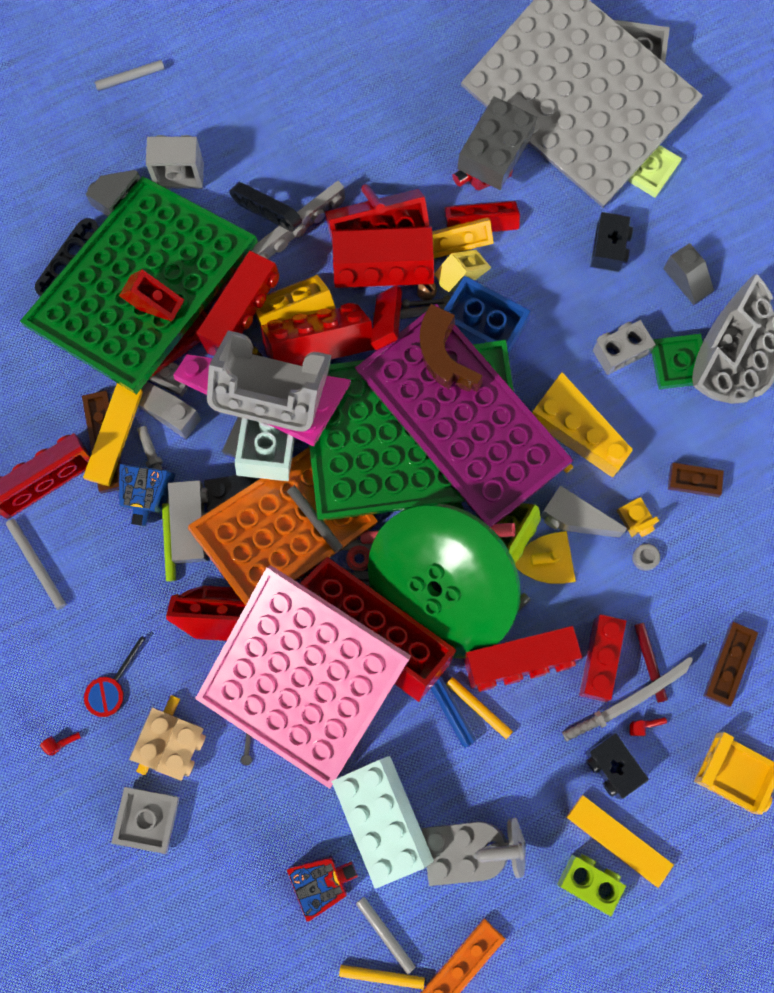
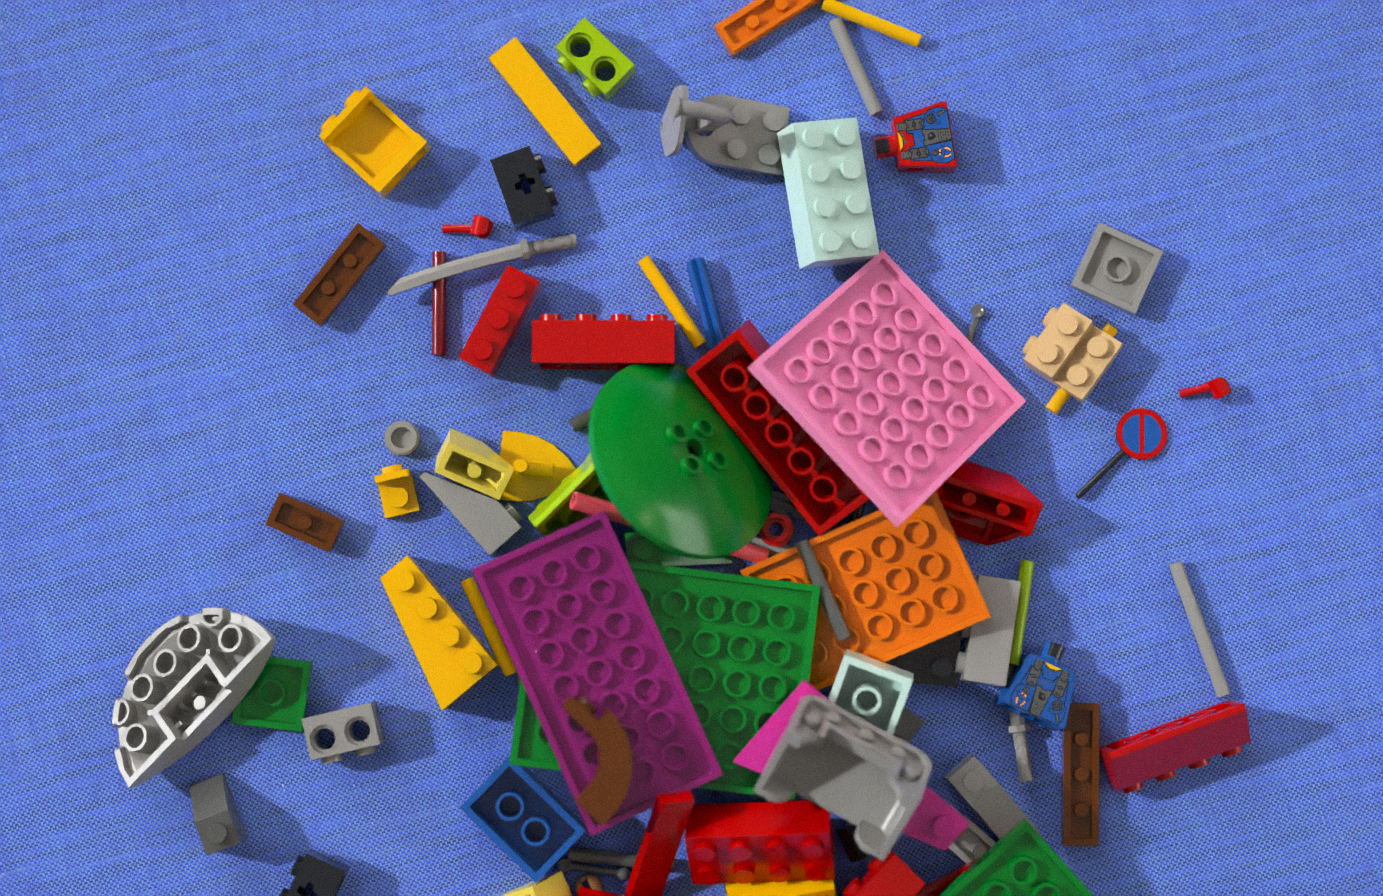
camera: 165 degrees left, 10 degrees up
(112, 436) = (1068, 773): yellow tile -> none
(591, 547) = (473, 464): none -> light yellow slope

